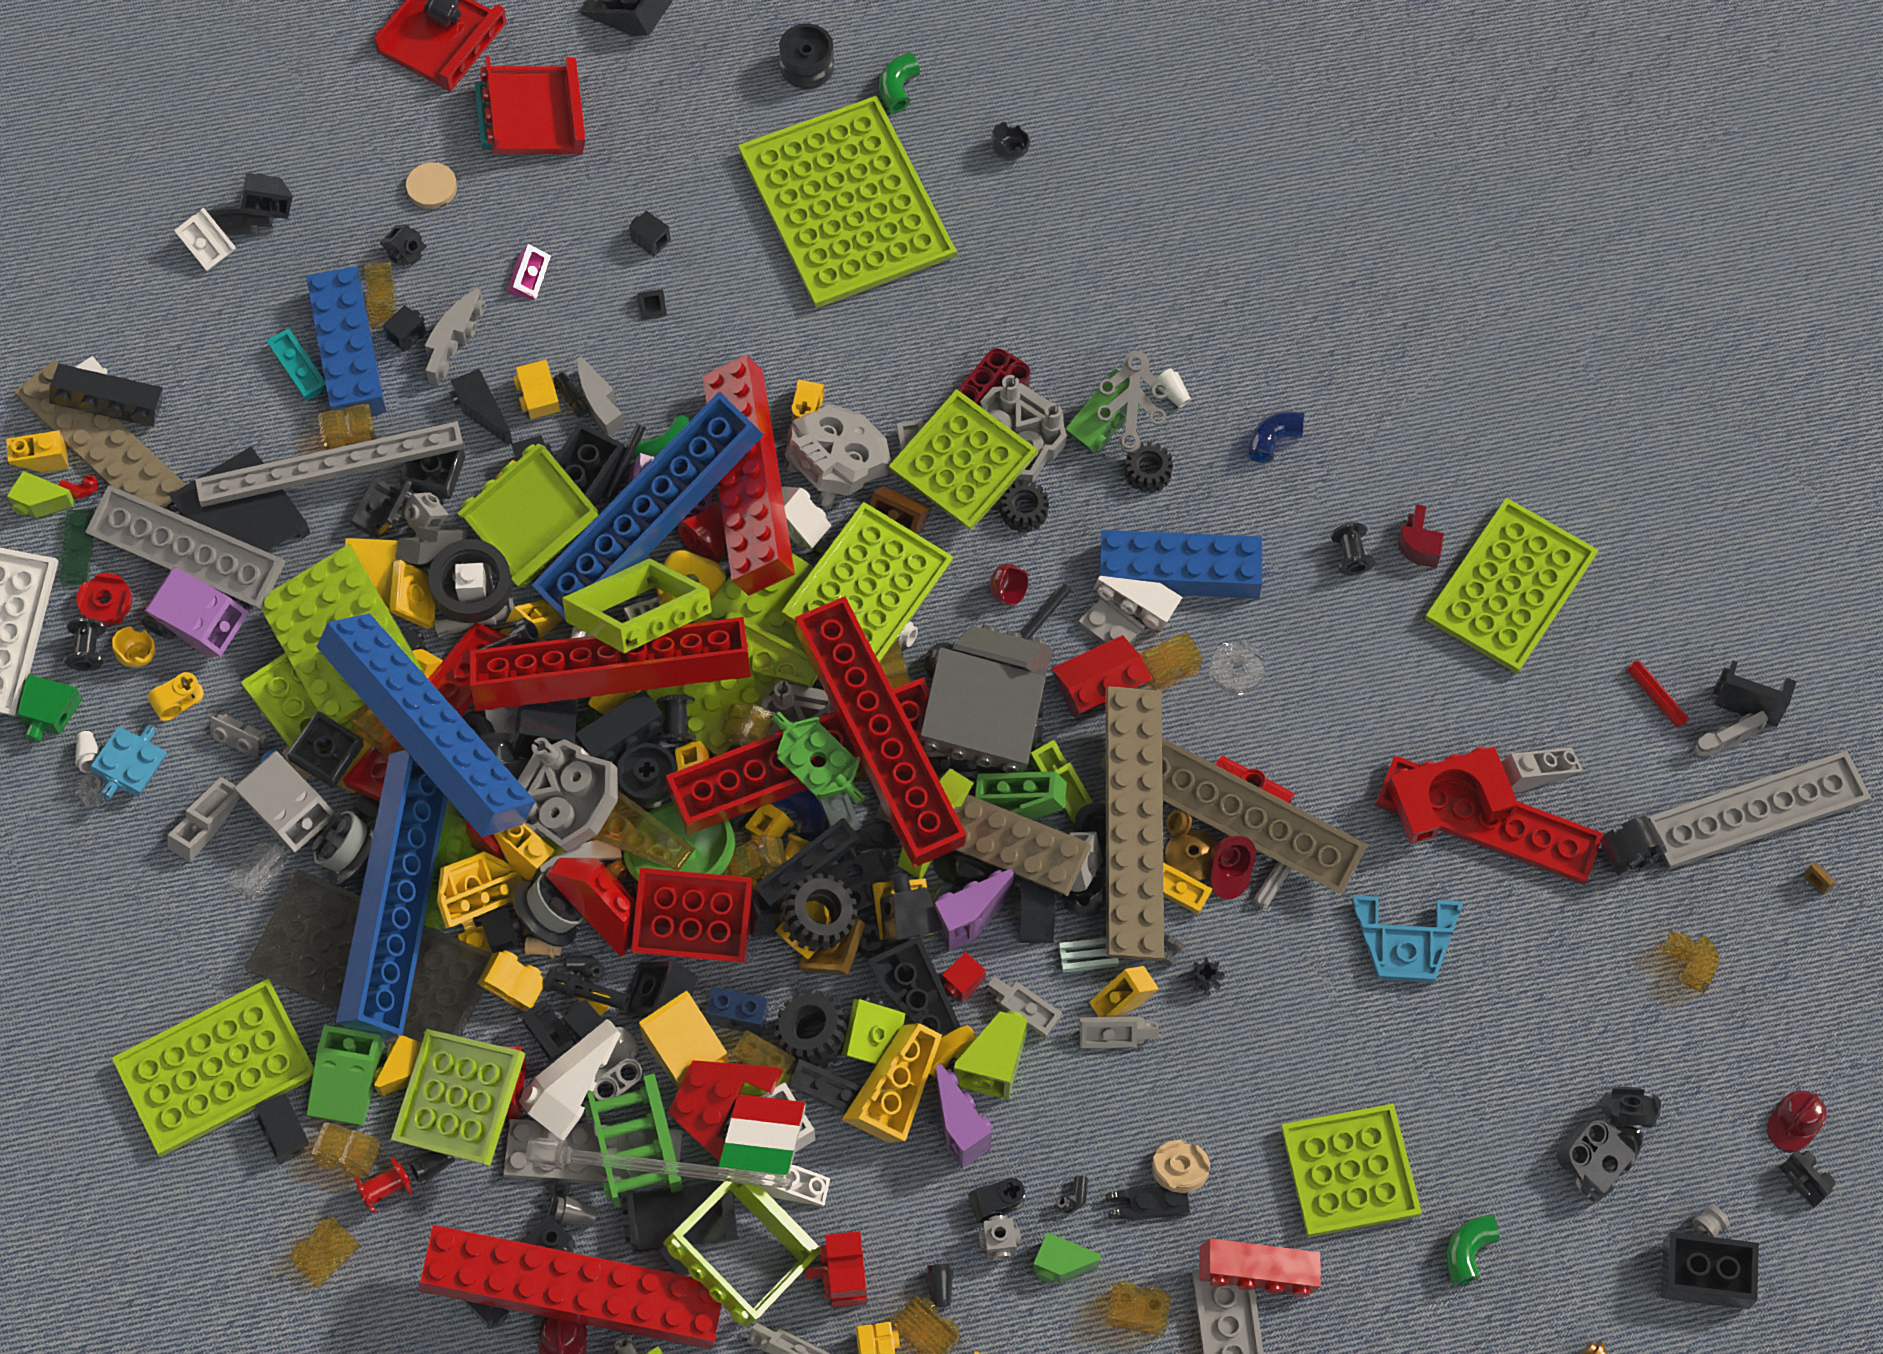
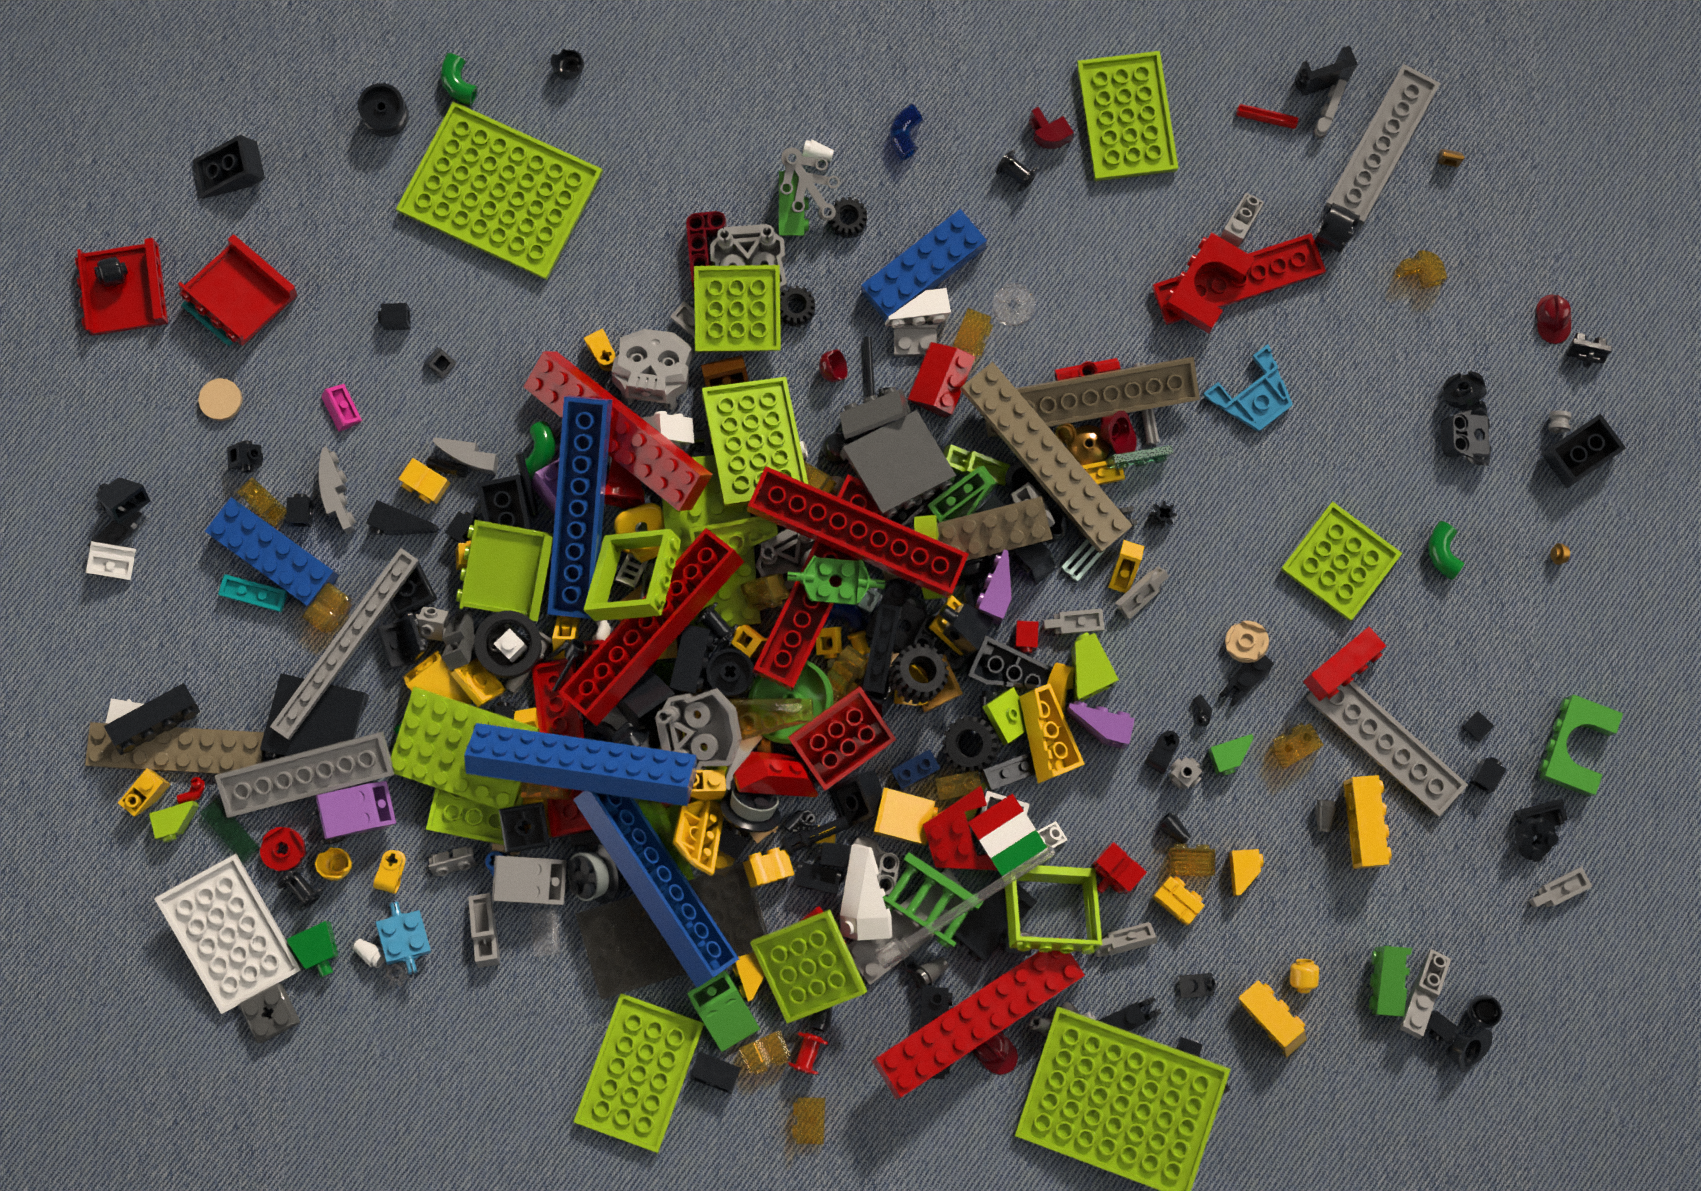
camera: 40 degrees left, 15 degrees up
(1230, 901) = (1139, 458): none -> clear green plate

